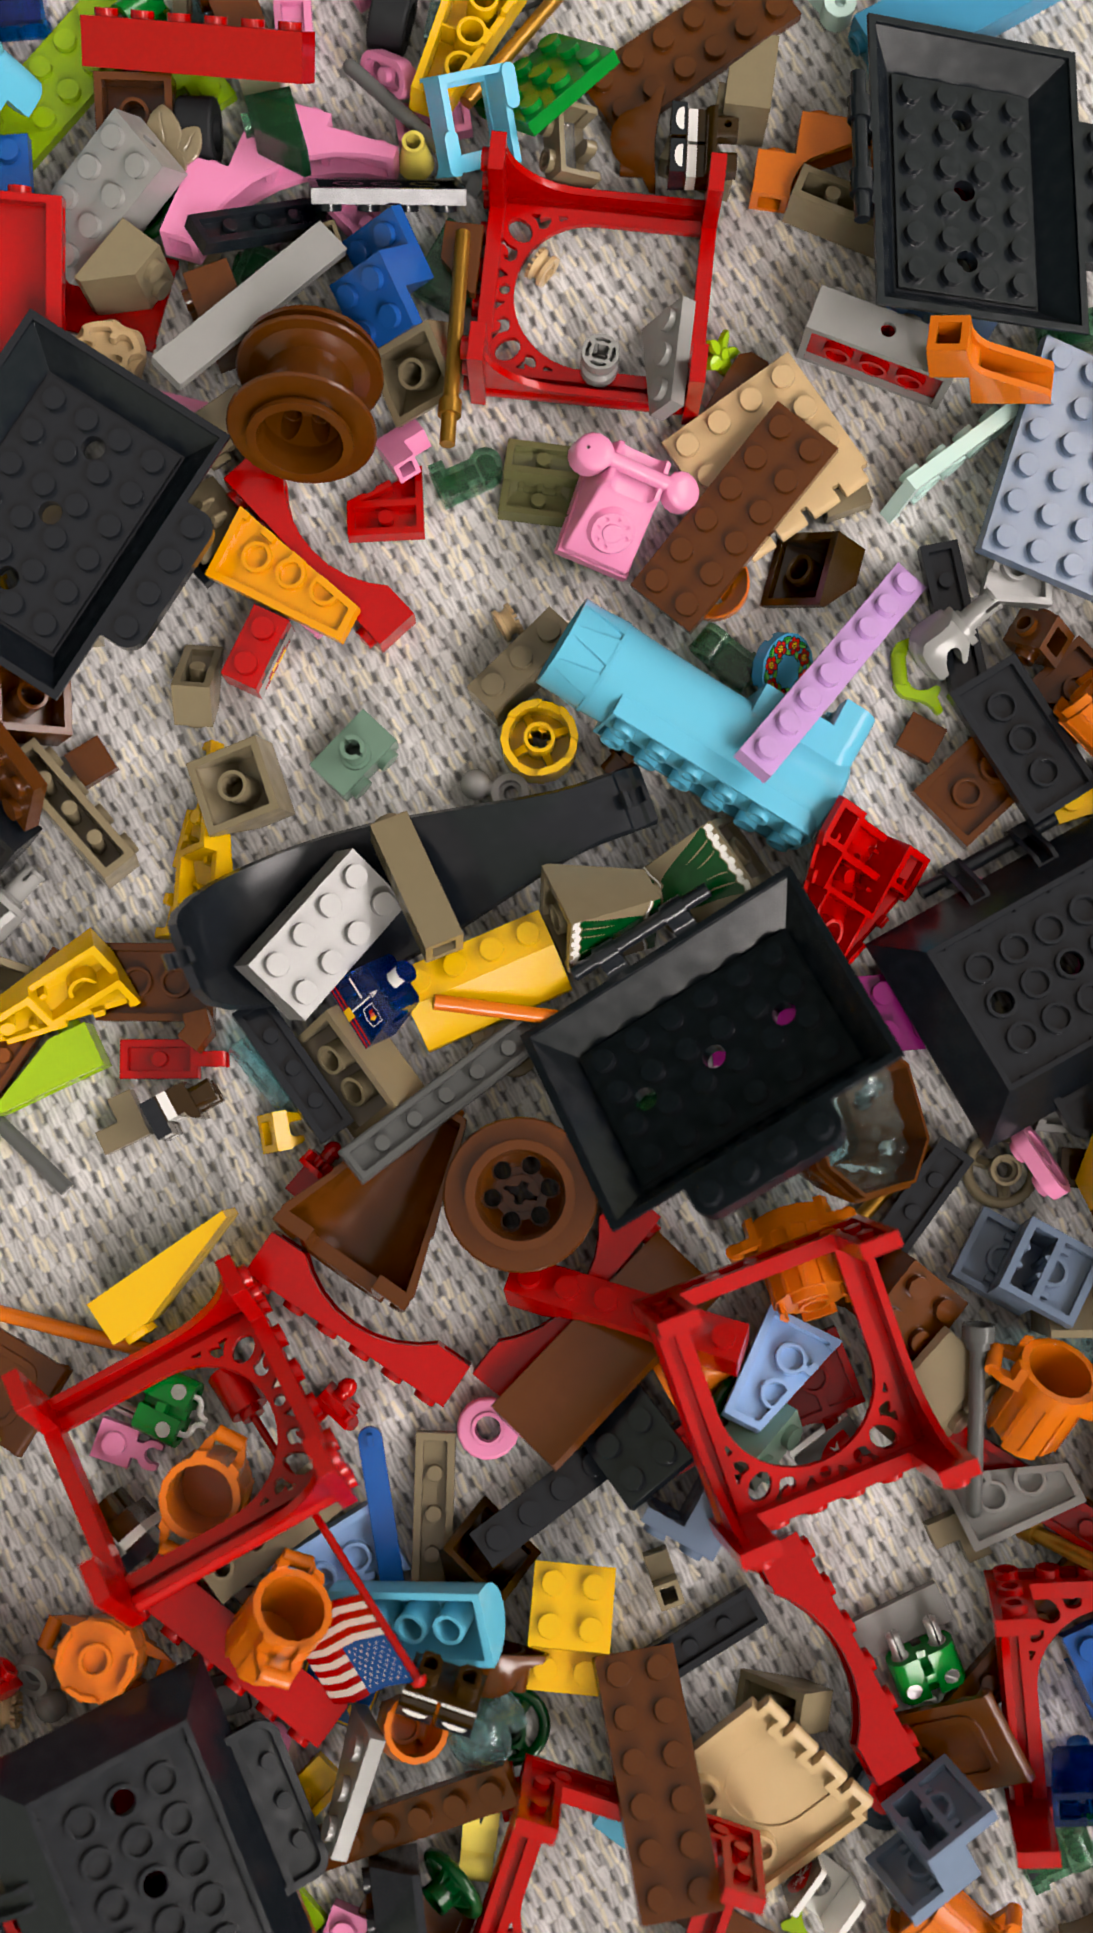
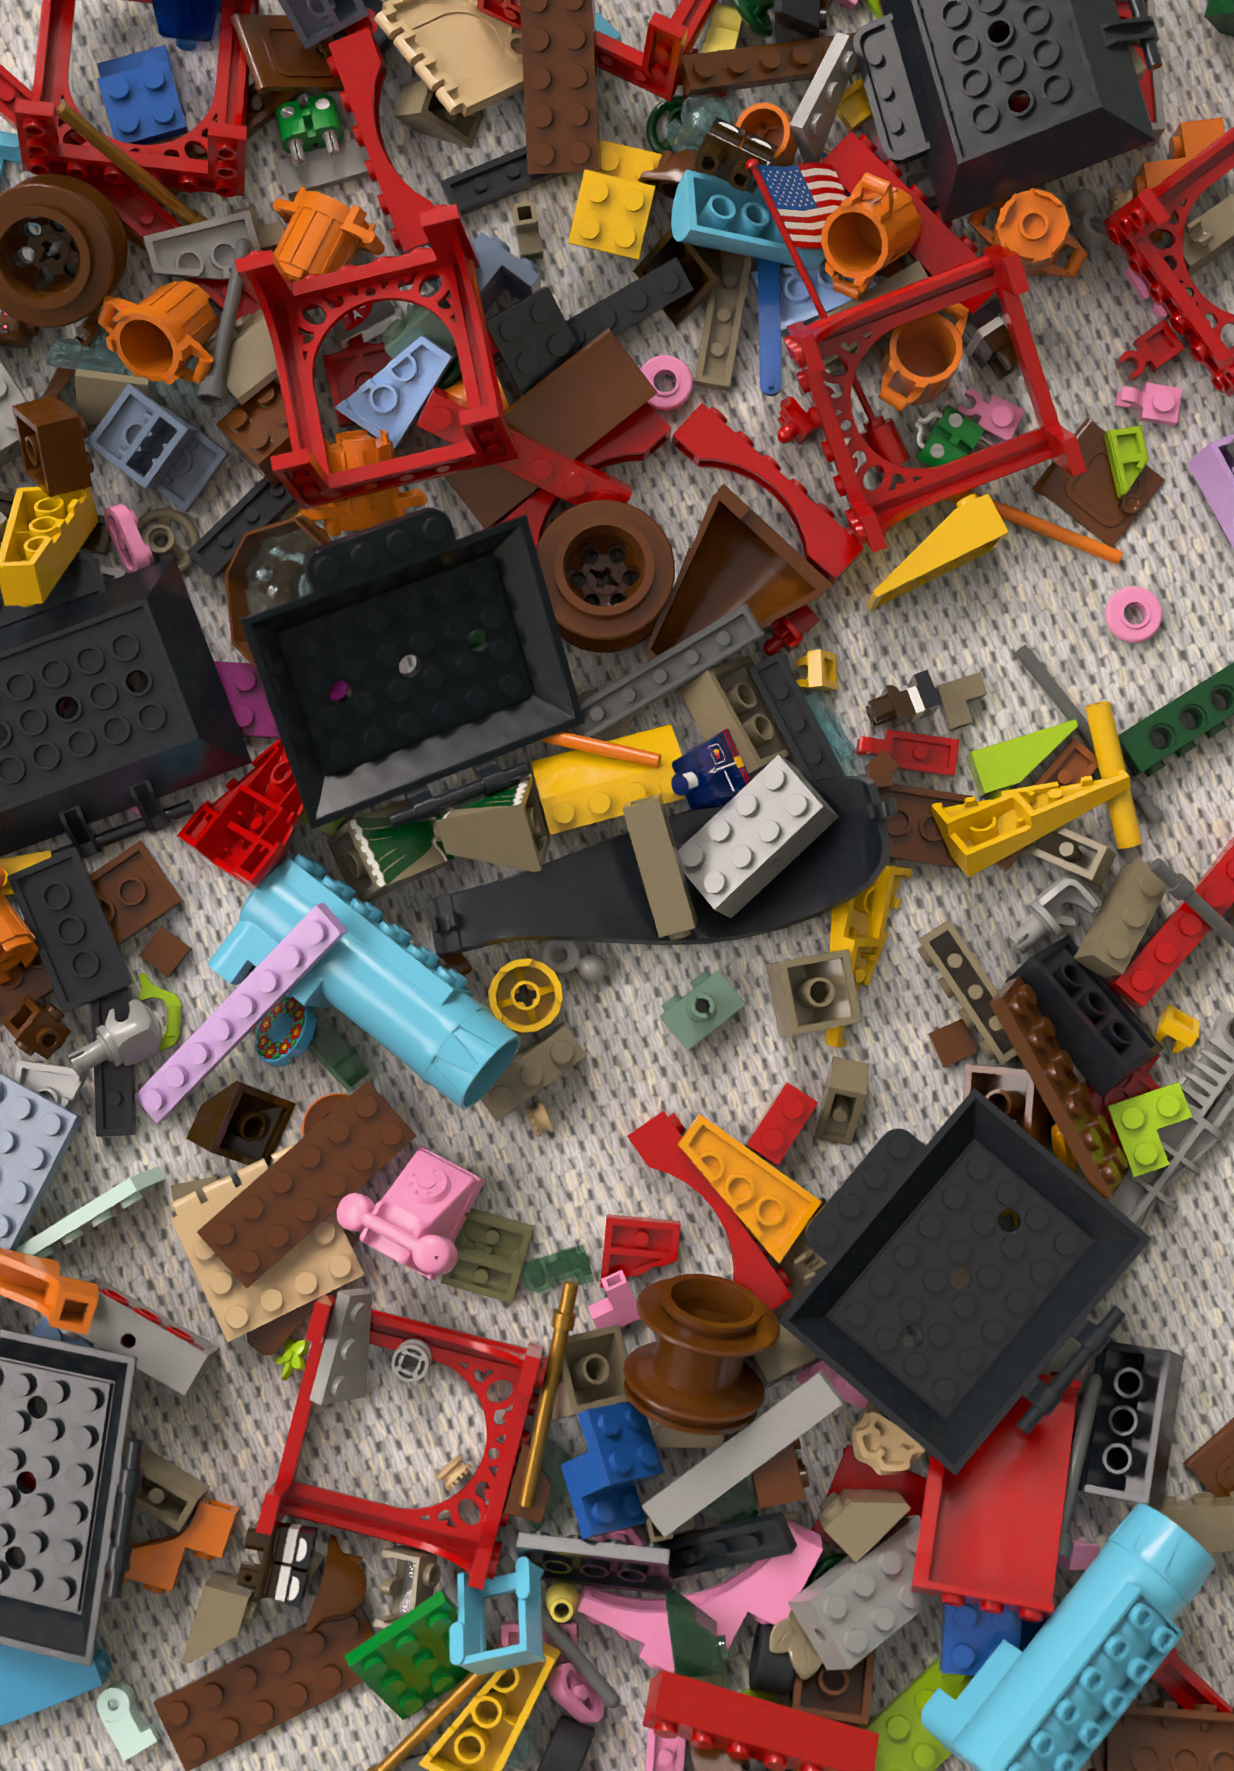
camera: 175 degrees left, 0 degrees up
(891, 1531) = (321, 234): none -> orange container

